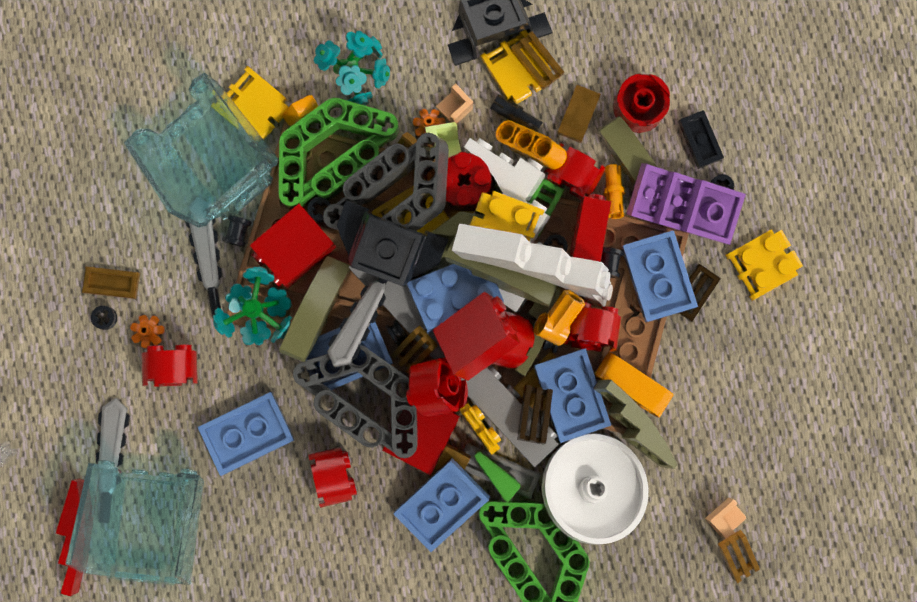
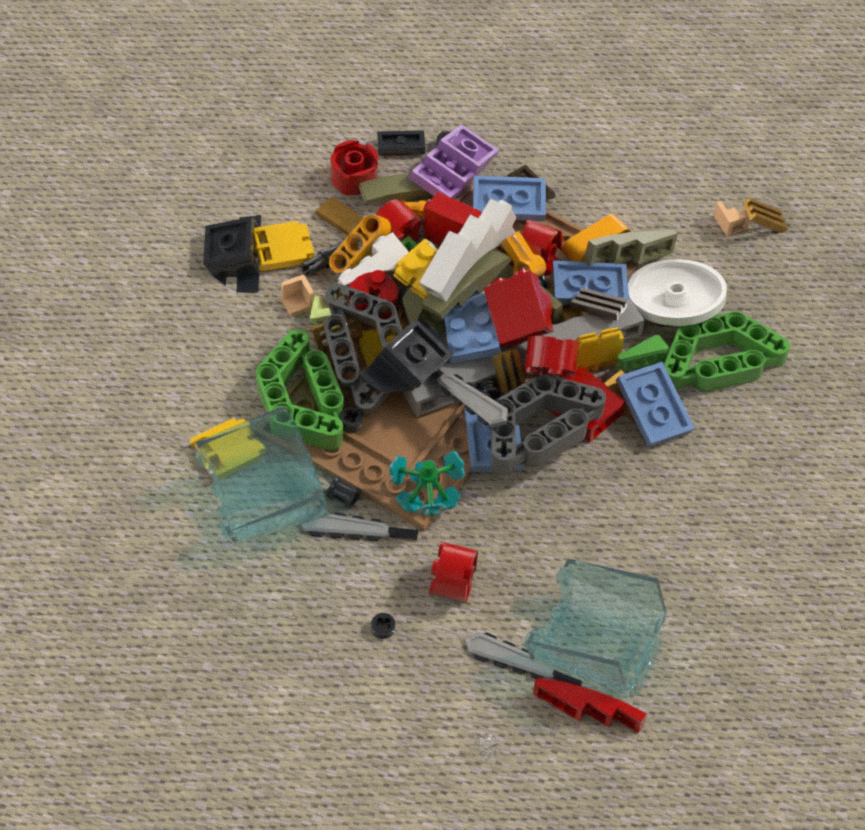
camera: 70 degrees left, 30 degrees down
(111, 282) = (350, 612): pearl gold tile -> none
(151, 329) = (409, 596): orange plant -> none
(246, 433) = (537, 538): medium blue plate -> none
(292, 247) = (375, 443): red brick -> none
(299, 109) = (252, 406): light orange brick -> none
(314, 309) = (444, 436): olive slope -> none
(331, 476) = (602, 475): red brick -> none
(350, 73) = (220, 359): teal plant -> none
(426, 118) = (302, 322): orange plant -> none
(524, 42) = (283, 222): pearl gold tile -> none
(765, 262) = (523, 132): yellow plate -> none

